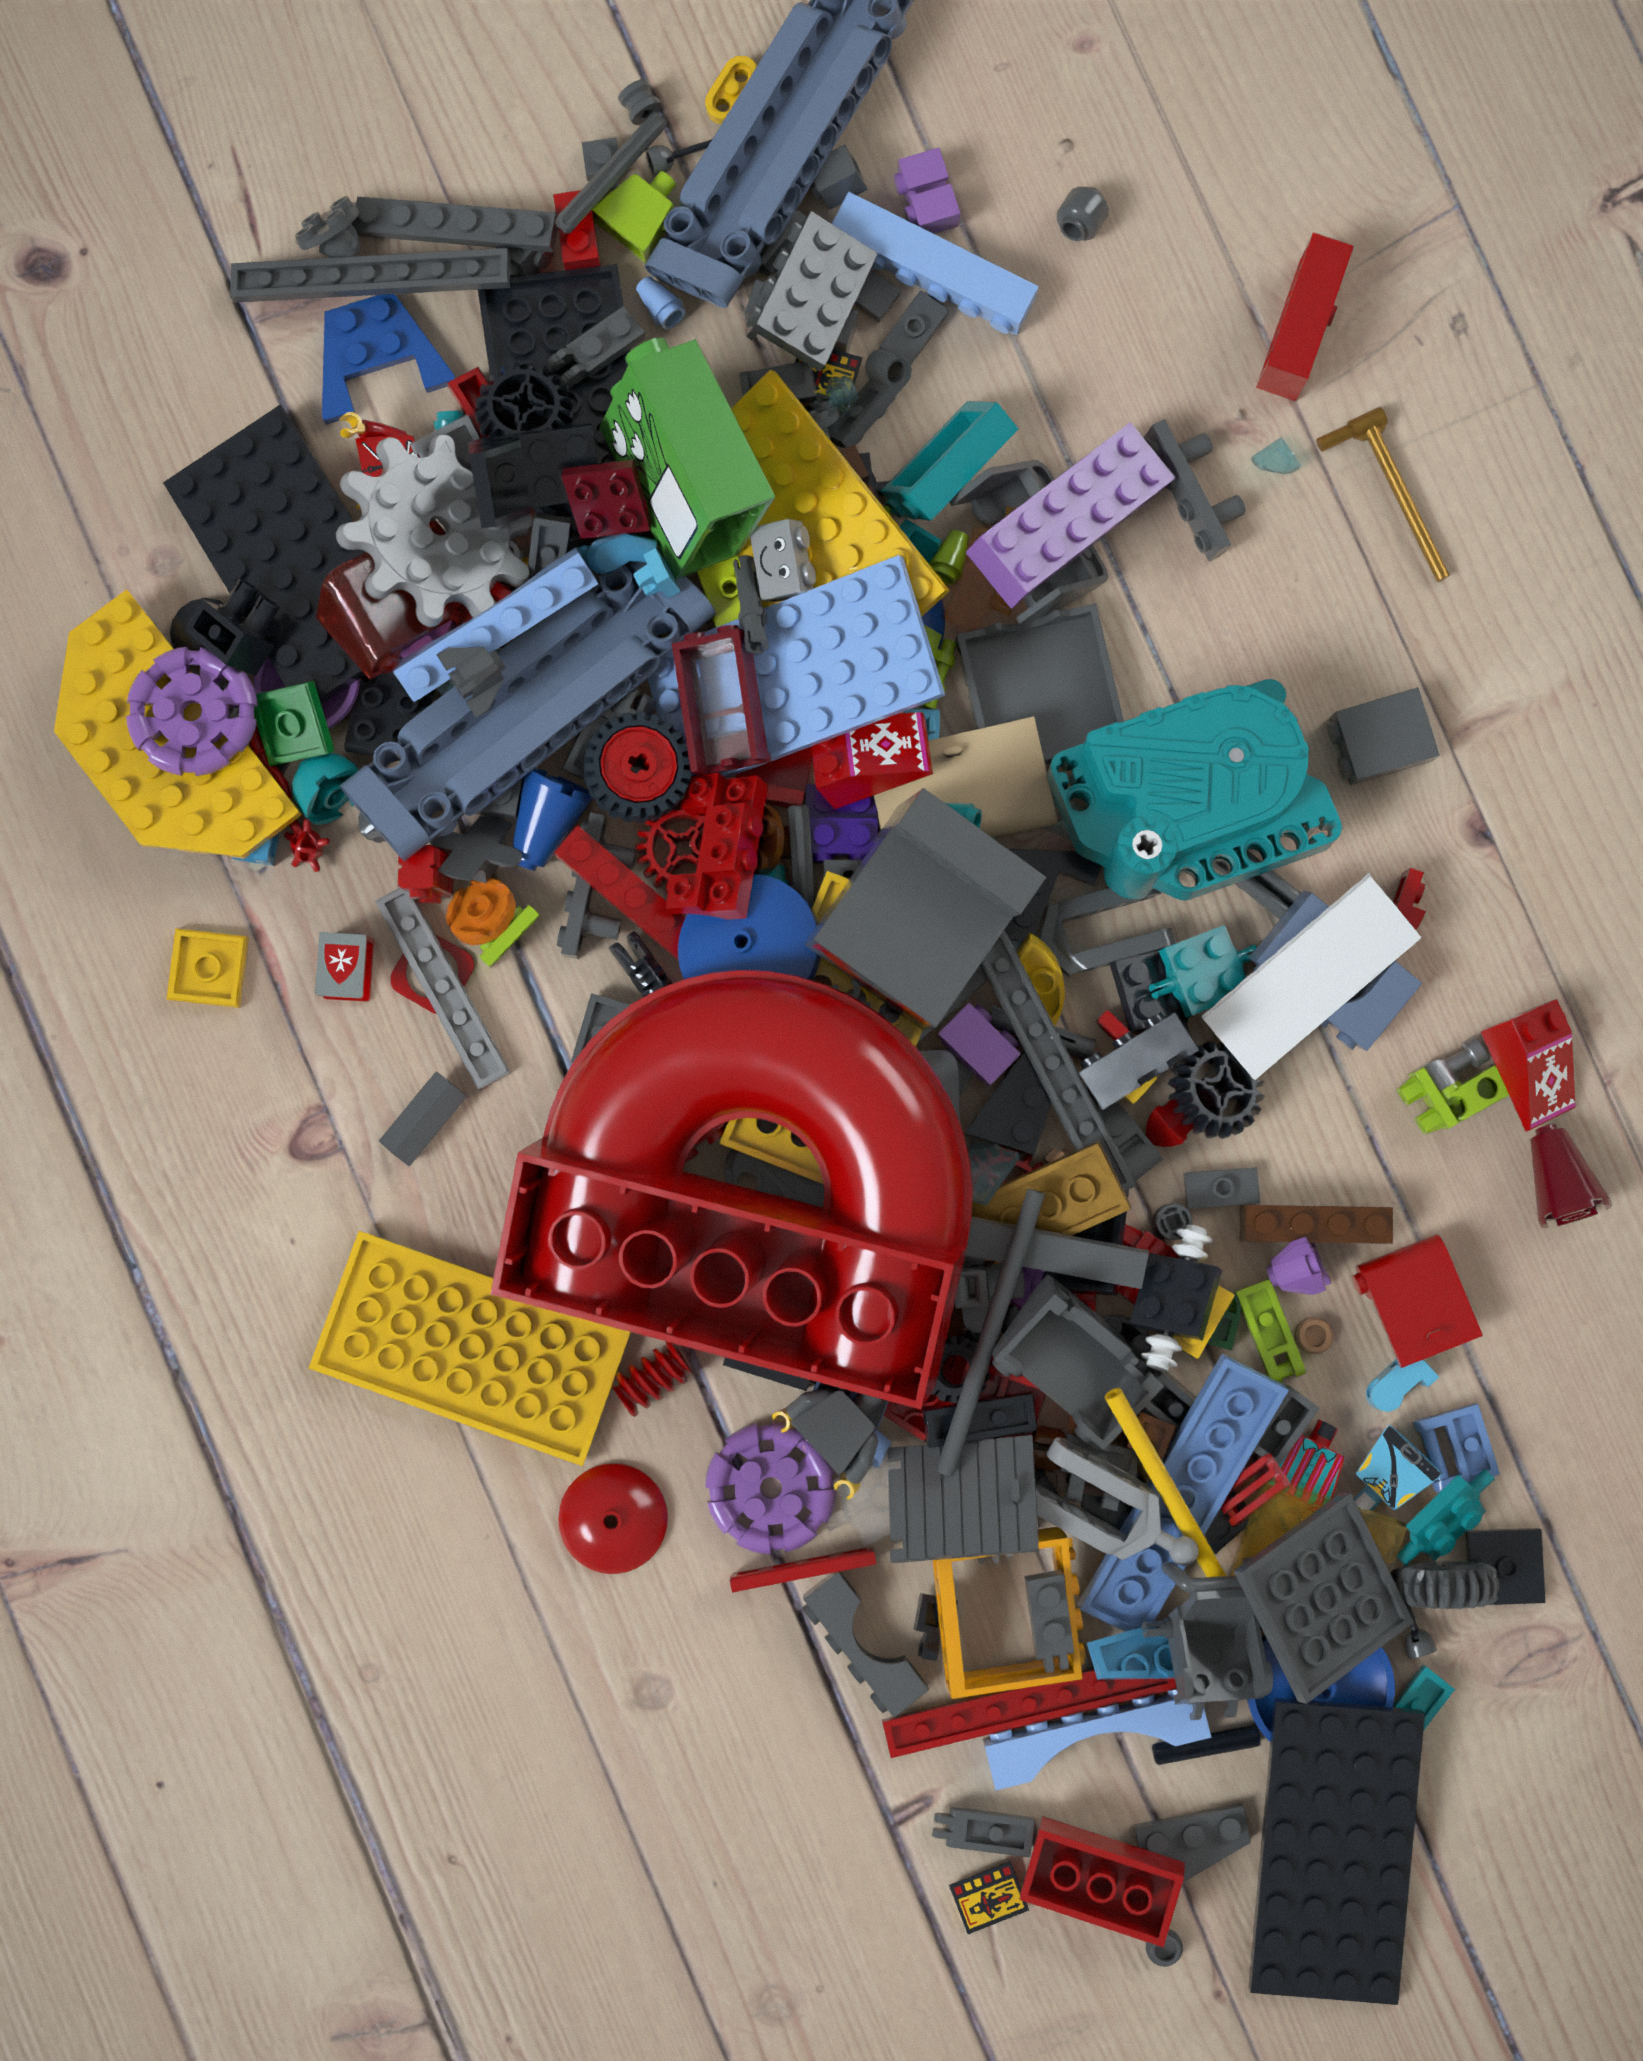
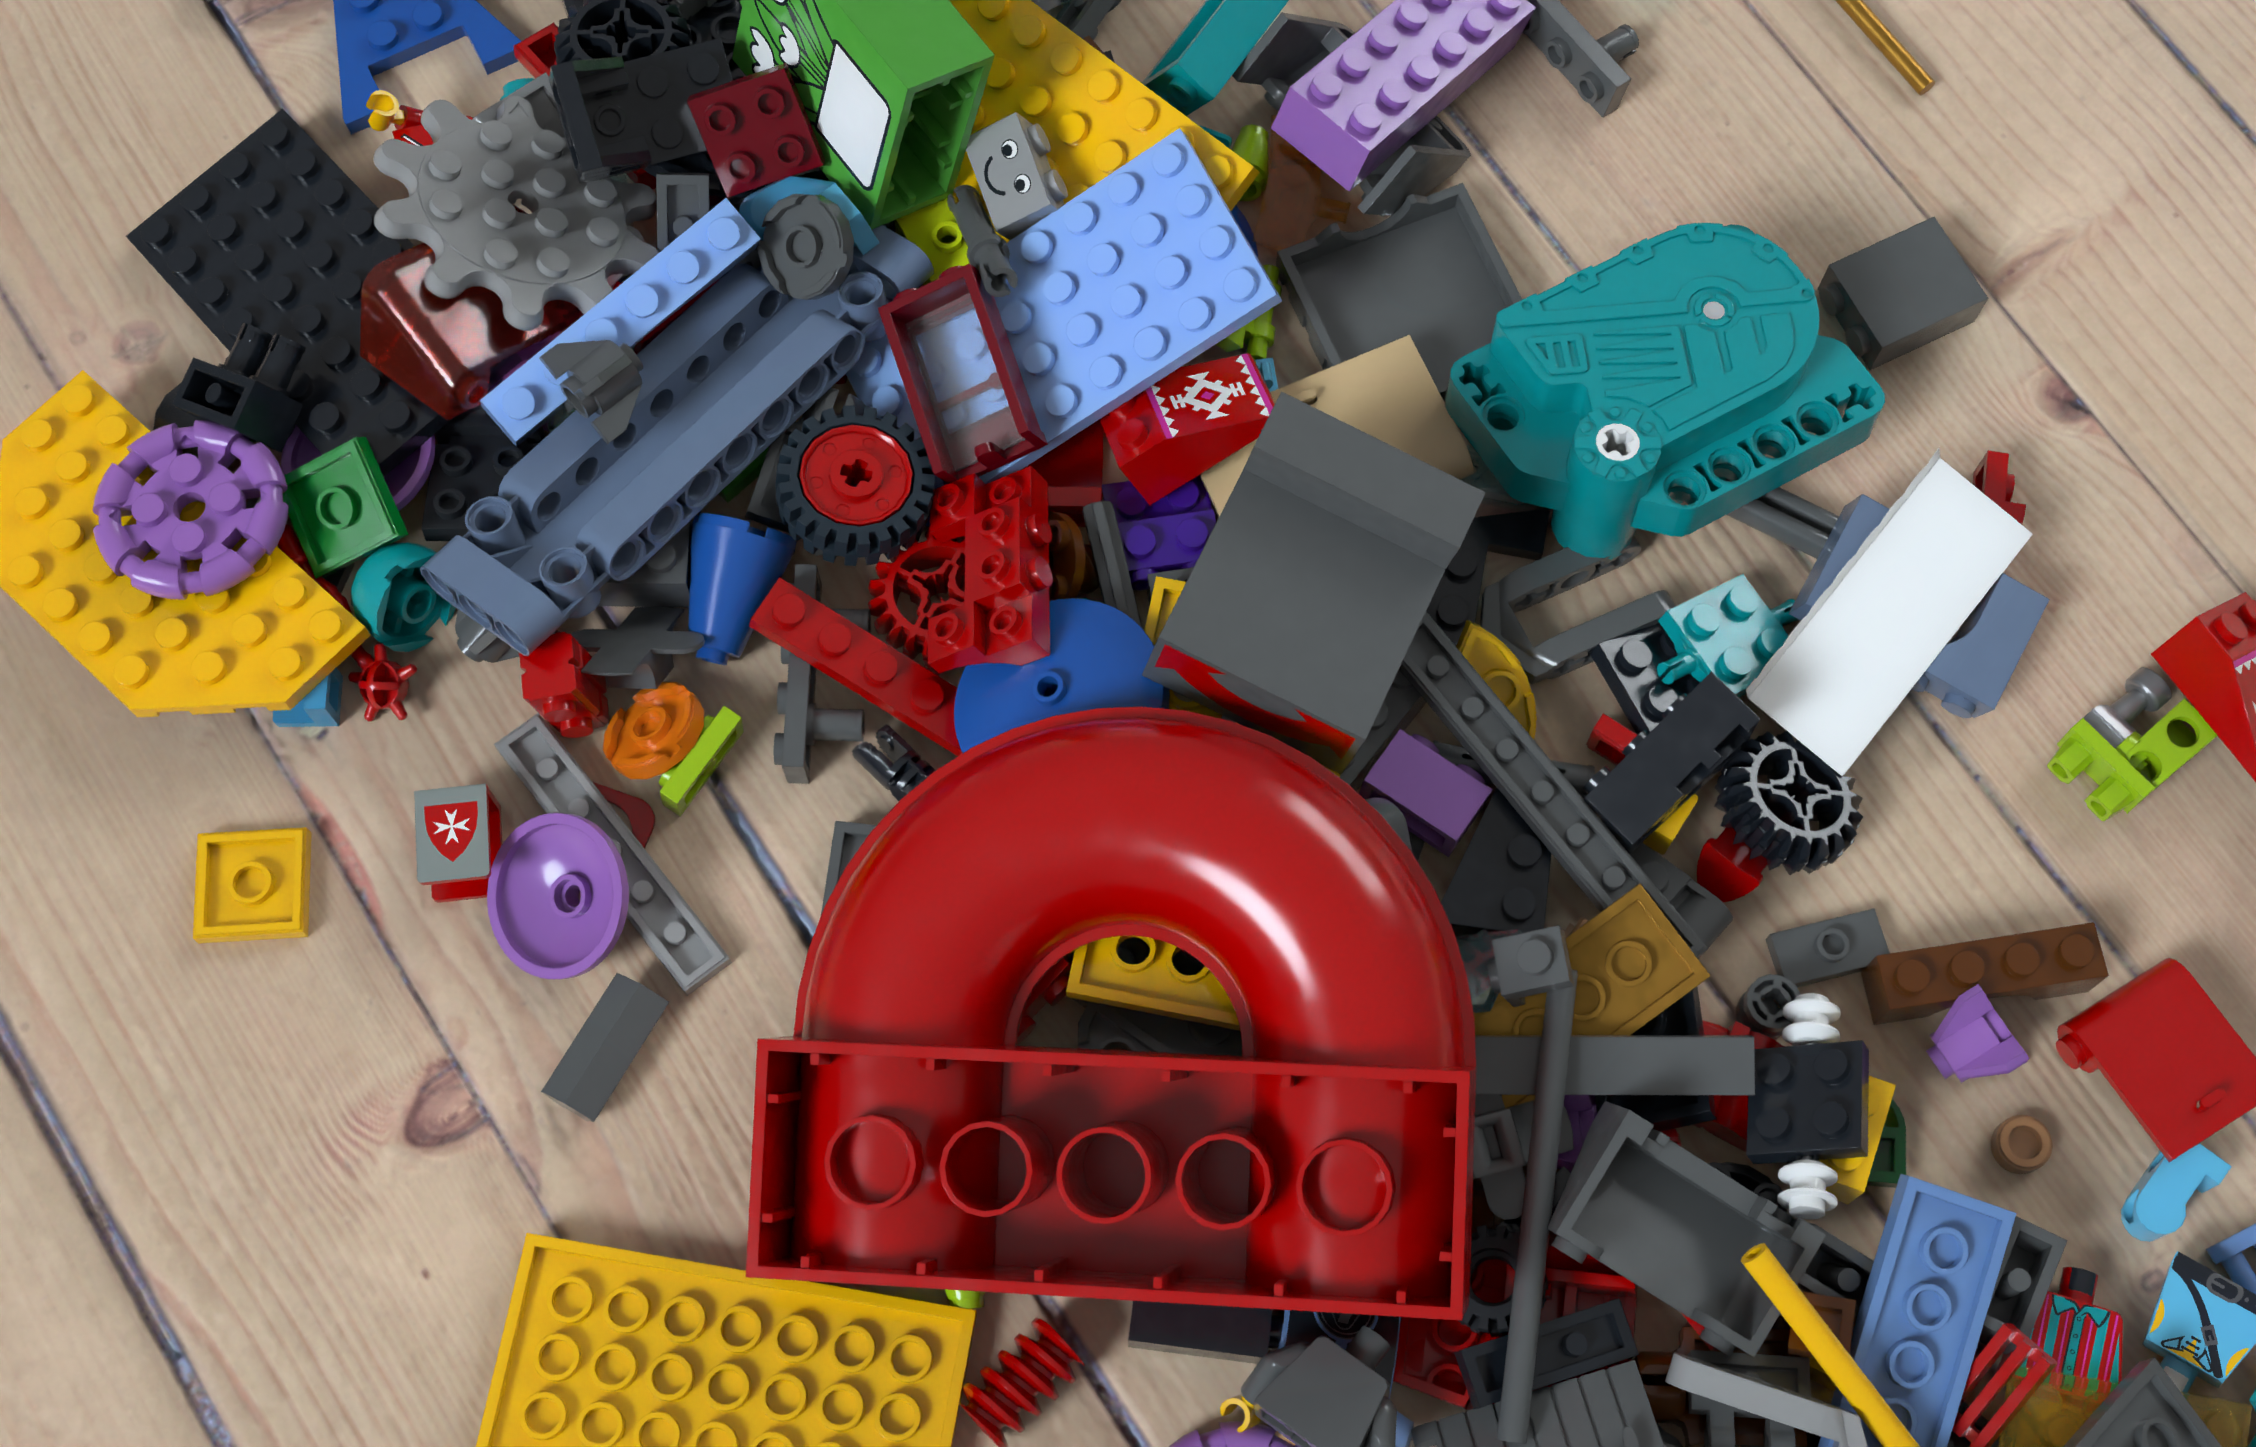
camera: 10 degrees left, 15 degrees down
(391, 1017) = (537, 901): none -> medium lavender dish
(629, 592) = (806, 246): none -> dark grey tile
(1015, 1185) = (1530, 964): none -> dark grey bracket
(1270, 1330) = (1954, 1141): lime plate -> none

